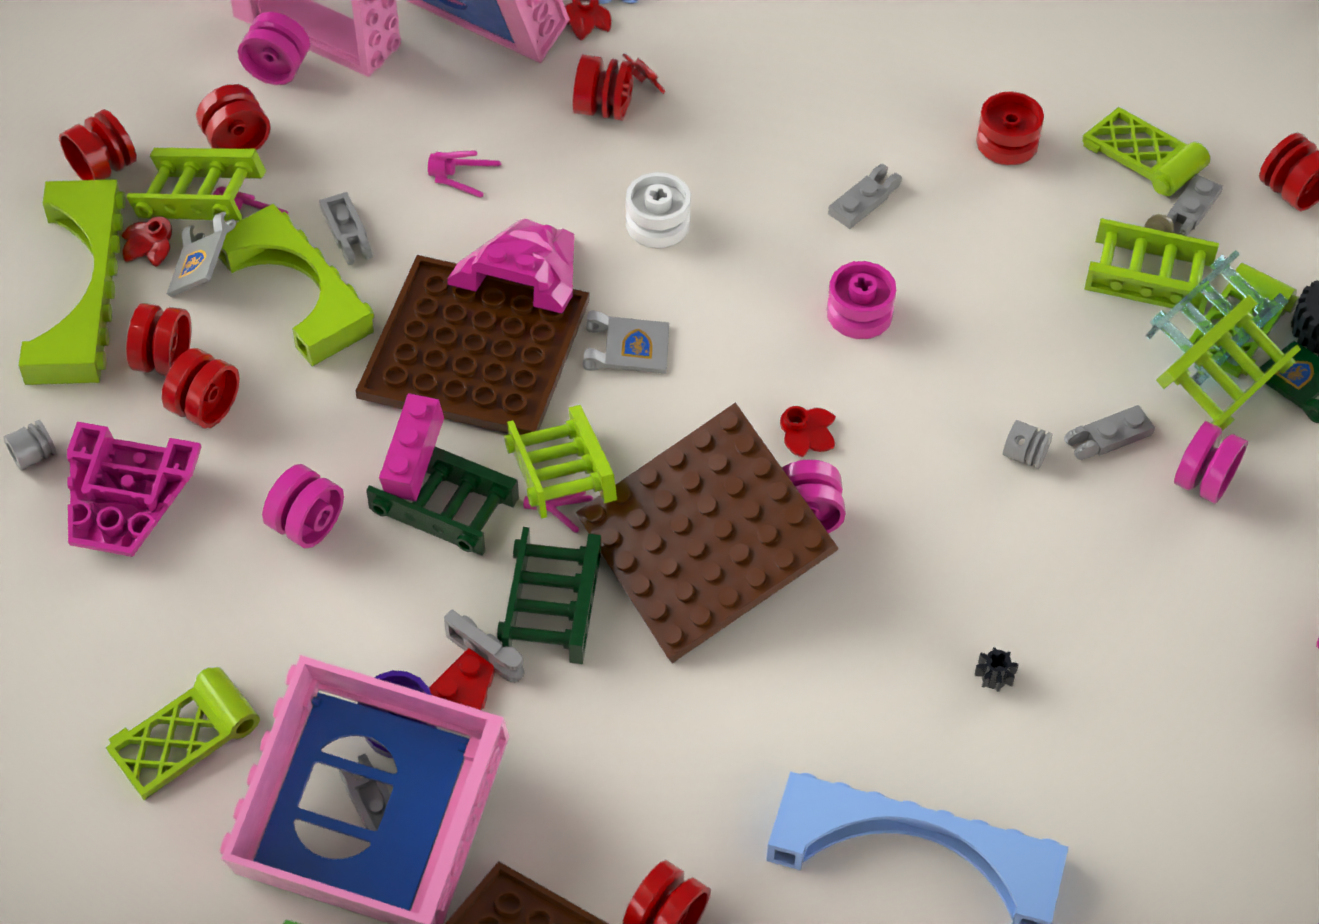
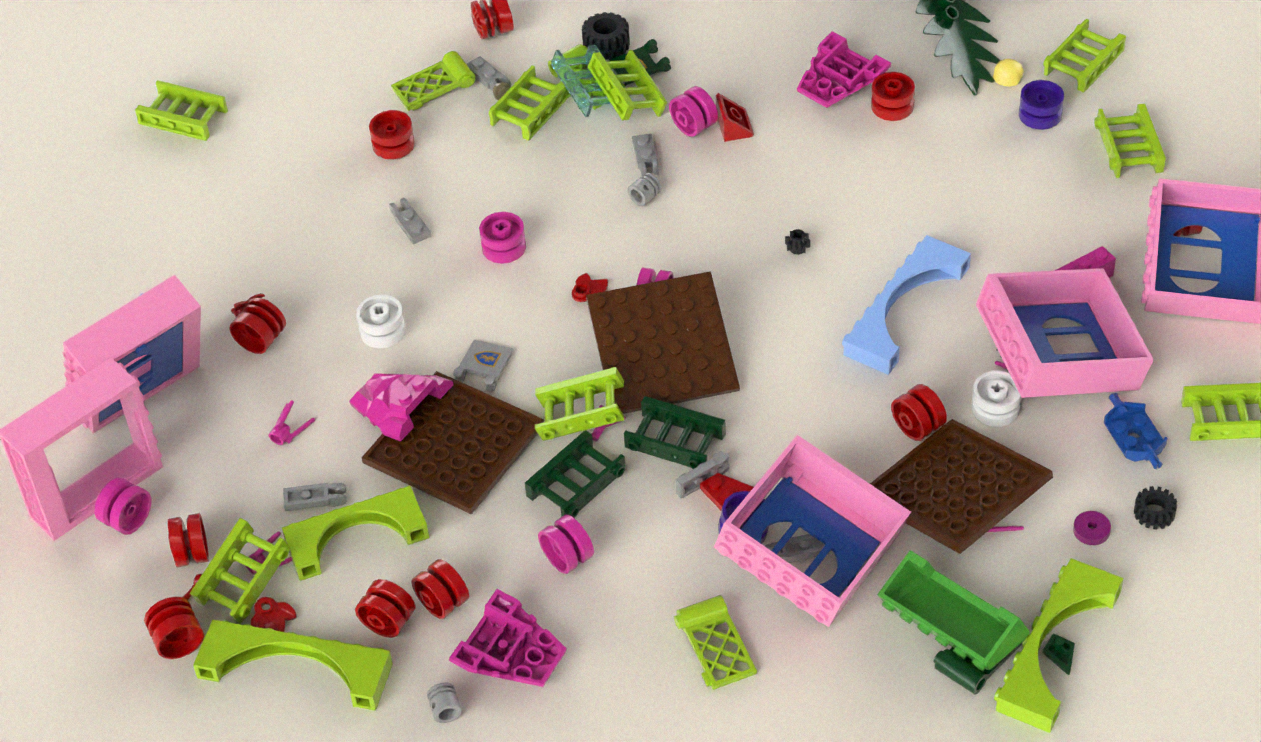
camera: 70 degrees left, 5 degrees down
(199, 256) = (313, 582): light grey flag -> none
(411, 447) = (545, 472): dark pink brick -> none
(1231, 522) = (732, 119): none -> red slope

